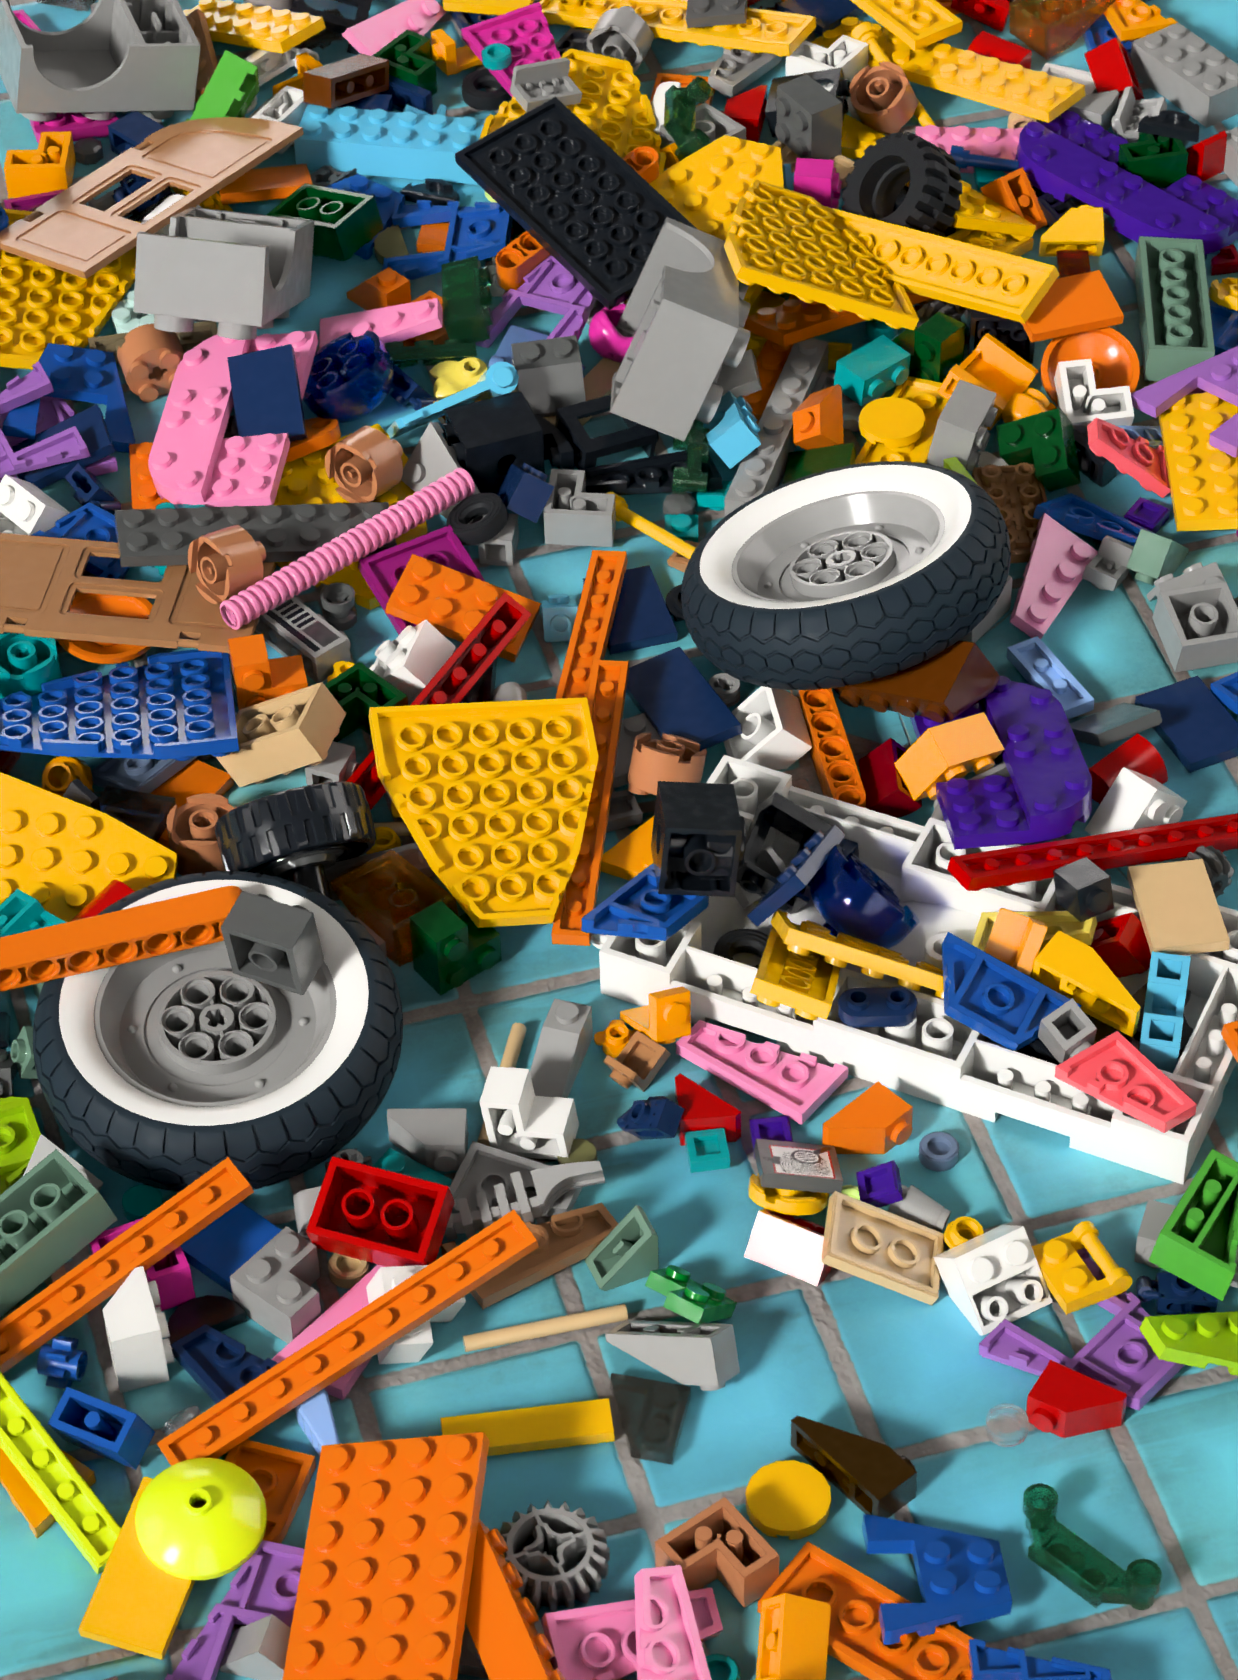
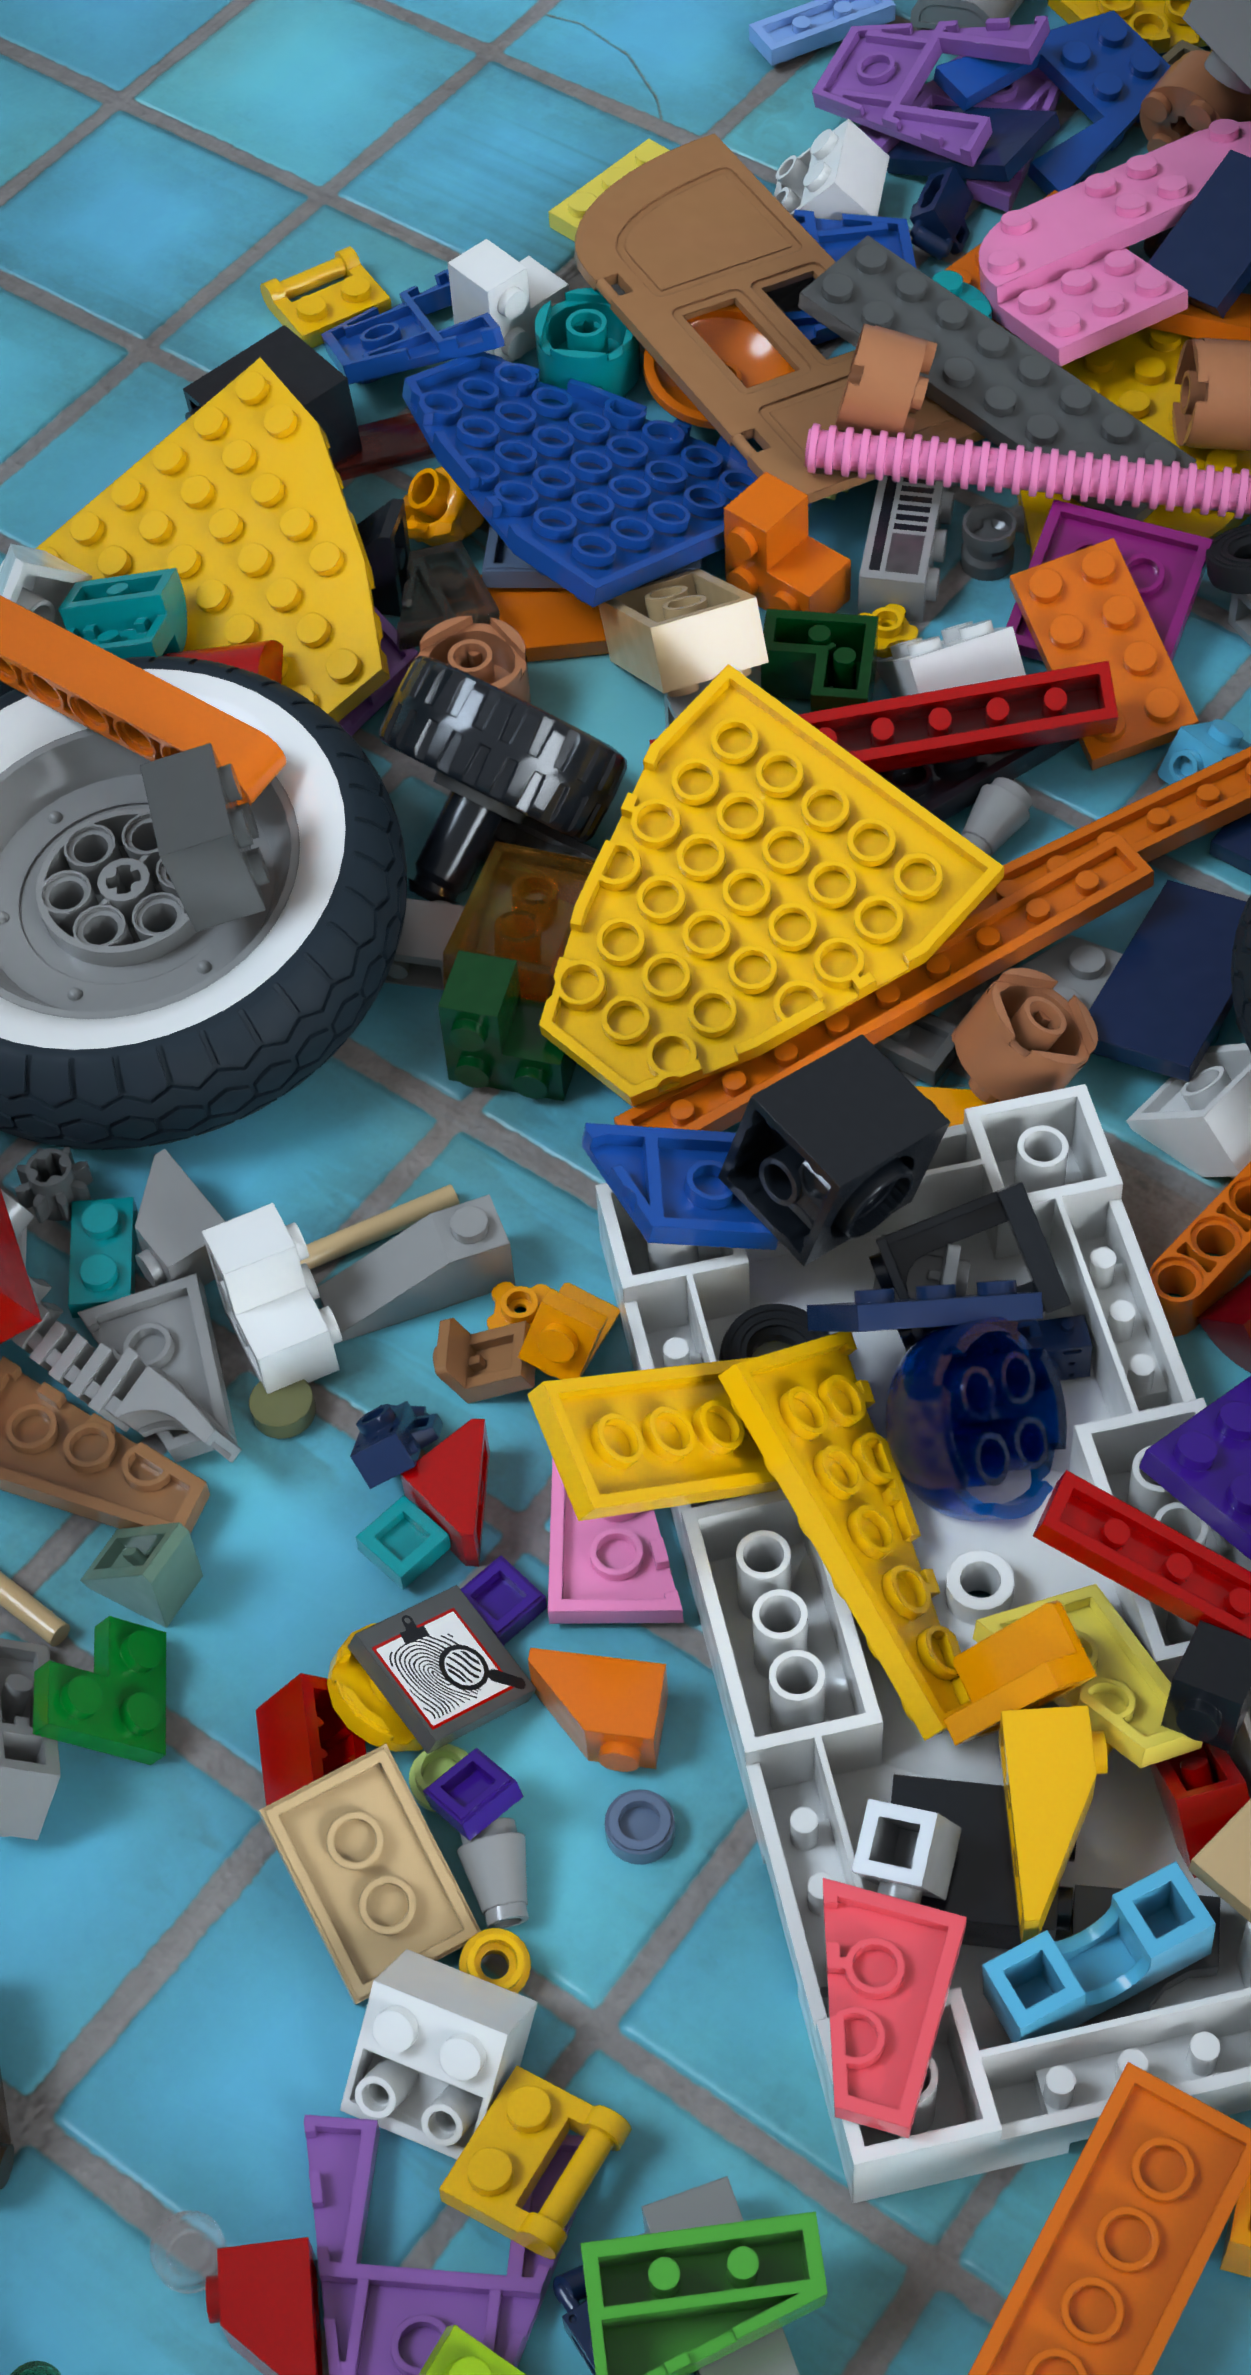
camera: 55 degrees right, 10 degrees up
(877, 1007) = (760, 1567): dark blue plate -> none
(994, 995) = (903, 1712): blue wing -> none

